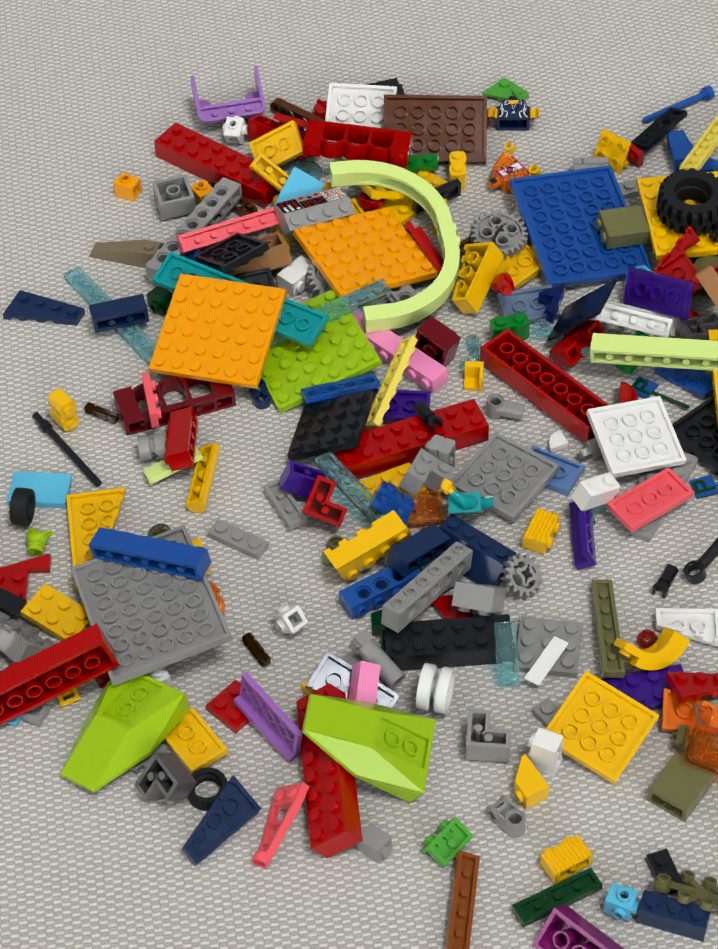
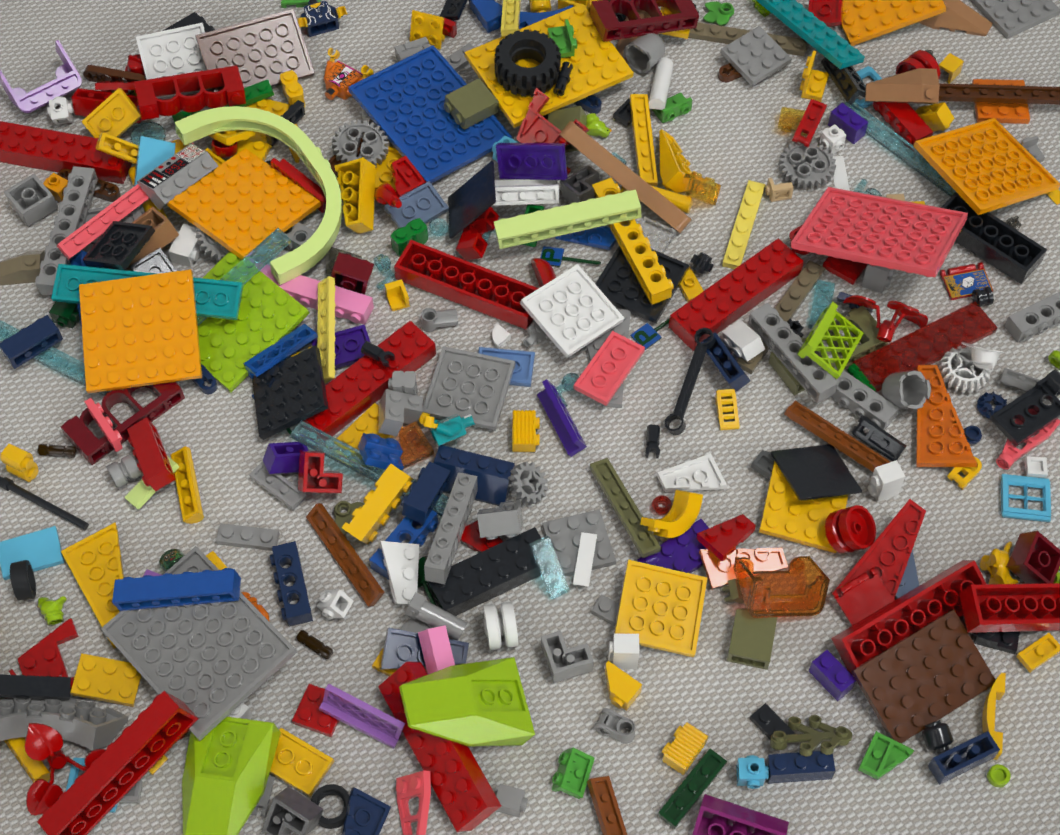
camera: 25 degrees left, 10 degrees up
(259, 590) = (301, 611): none -> dark blue brick
(319, 582) = (345, 555): none -> dark orange plate
(365, 606) = (402, 568): none -> white wing
(529, 273) = (405, 176): none -> red wing
(552, 299) = (438, 195): clear blue slope -> none
(595, 491) = (562, 379): white brick -> none

